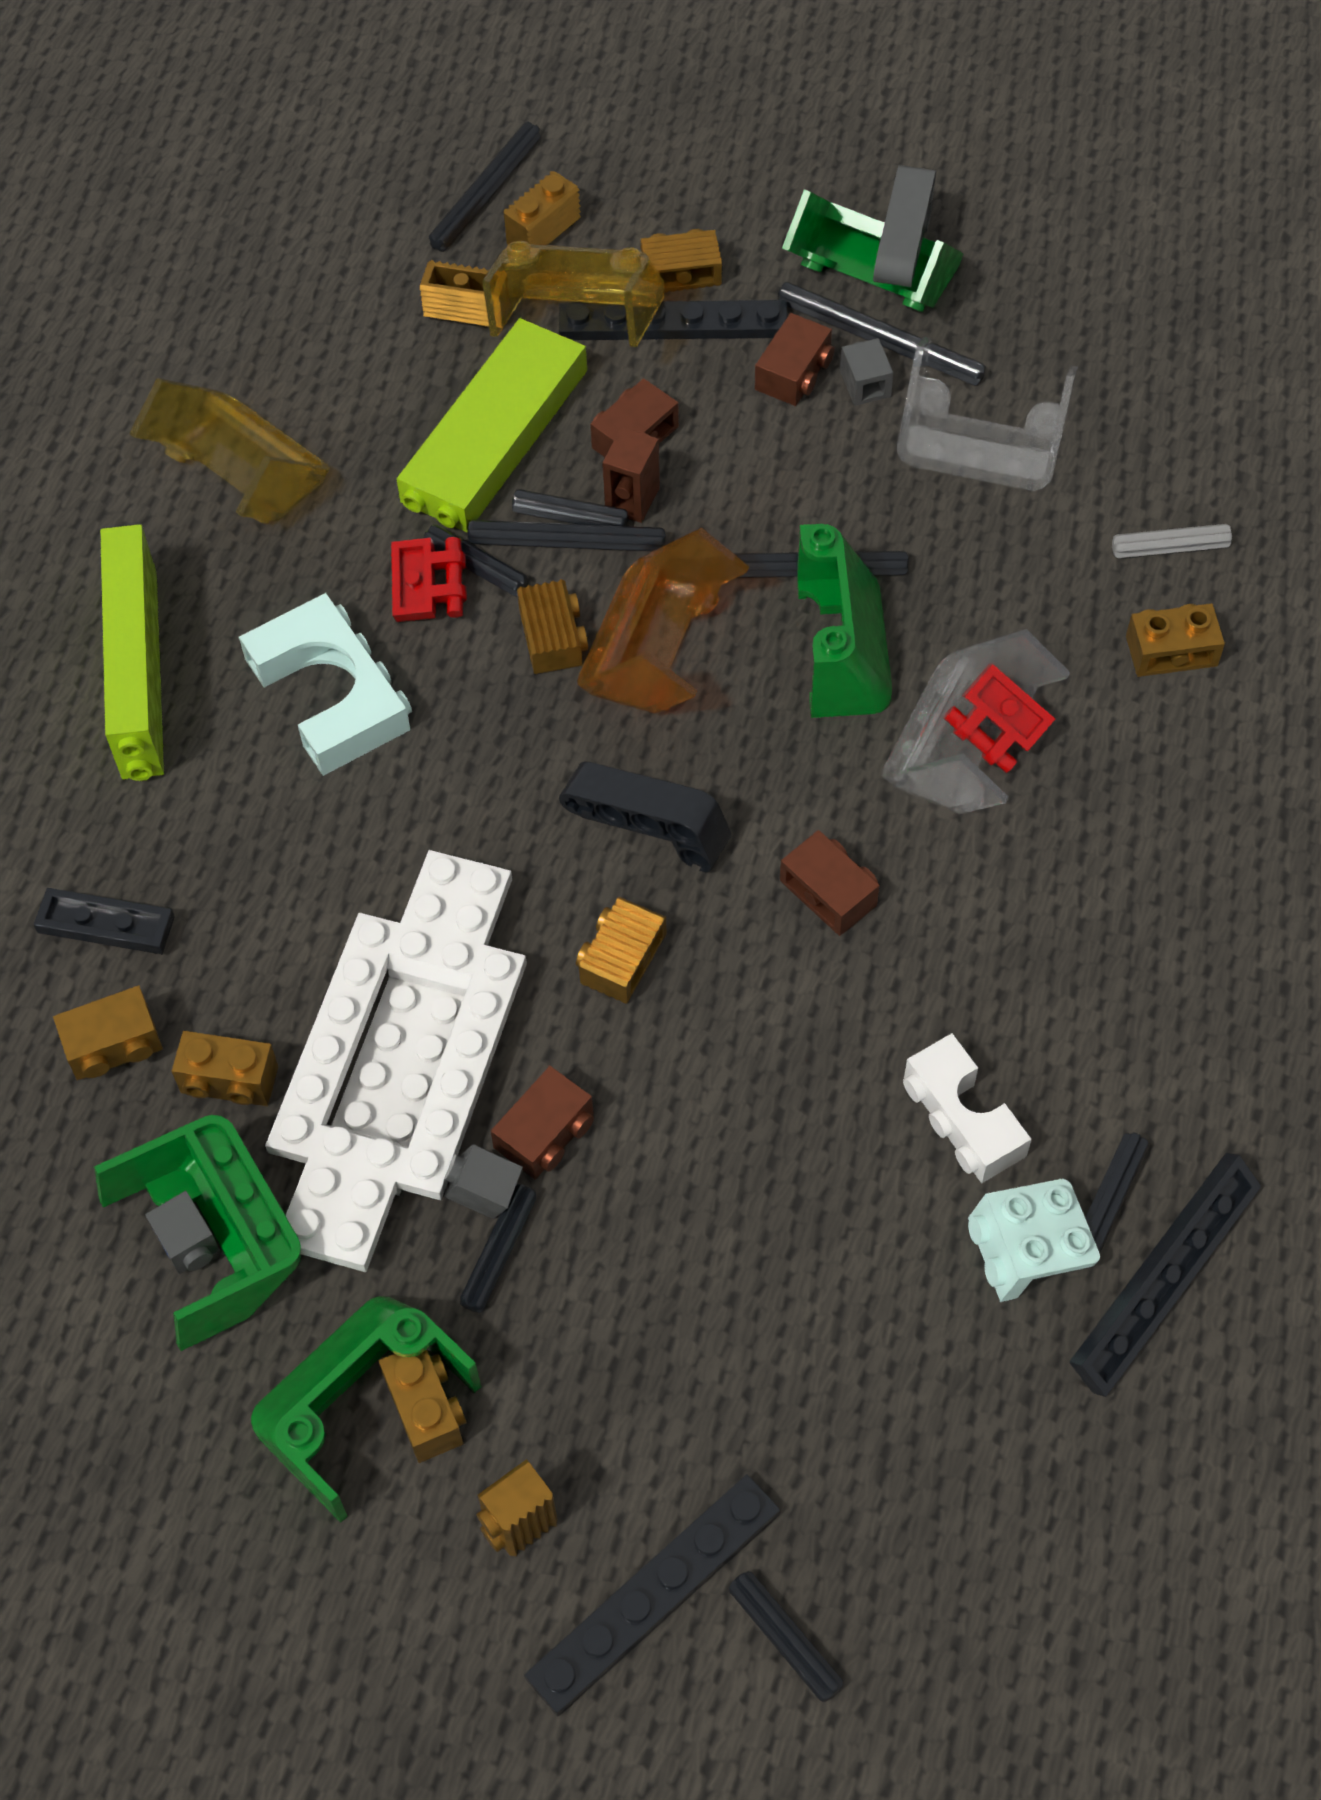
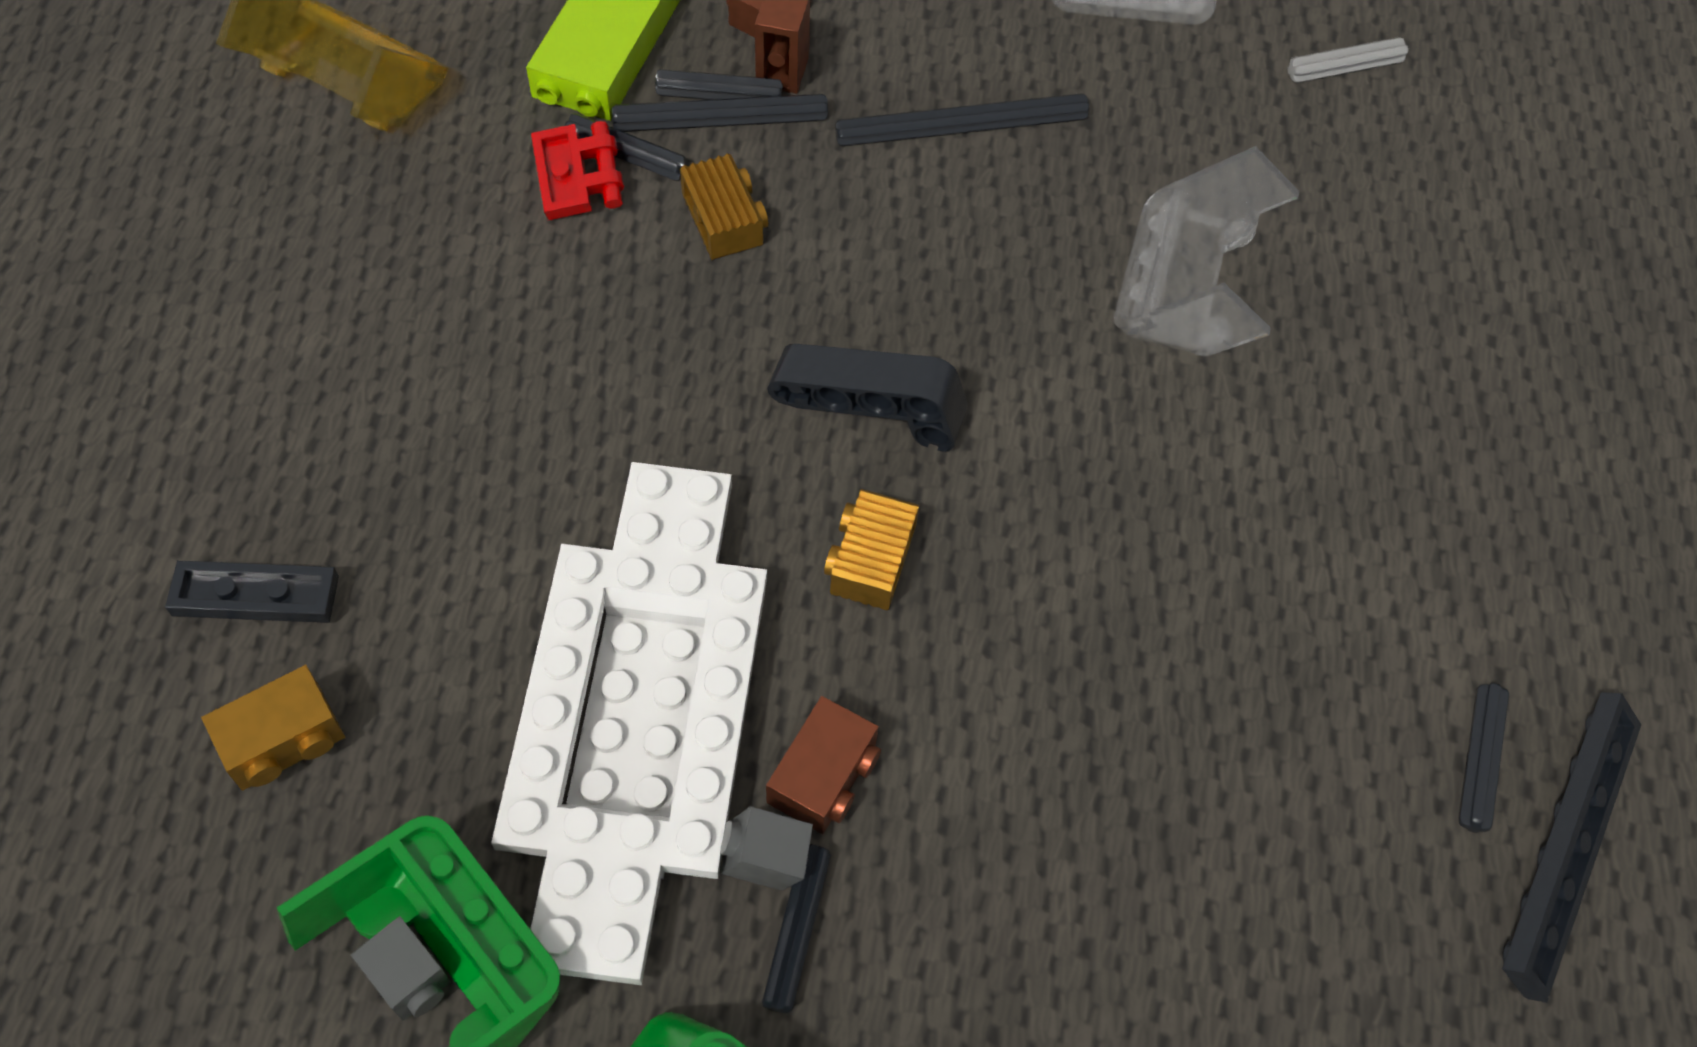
camera: 15 degrees left, 0 degrees up
(131, 653) = (247, 281): lime brick -> none
(225, 1068) = (426, 752): pearl gold brick -> none
(322, 635) = (468, 240): light aqua arch -> none
(649, 621) = (827, 184): clear orange windscreen -> none
(829, 882) = (1088, 445): copper brick -> none
(848, 659) = (1025, 130): green windscreen -> none
(982, 1141) = (1326, 715): white arch -> none
(1005, 706) = (1238, 237): red plate -> none
(1031, 1235) = (1415, 822): light aqua bracket -> none
(1174, 639) = (1382, 153): pearl gold brick -> none

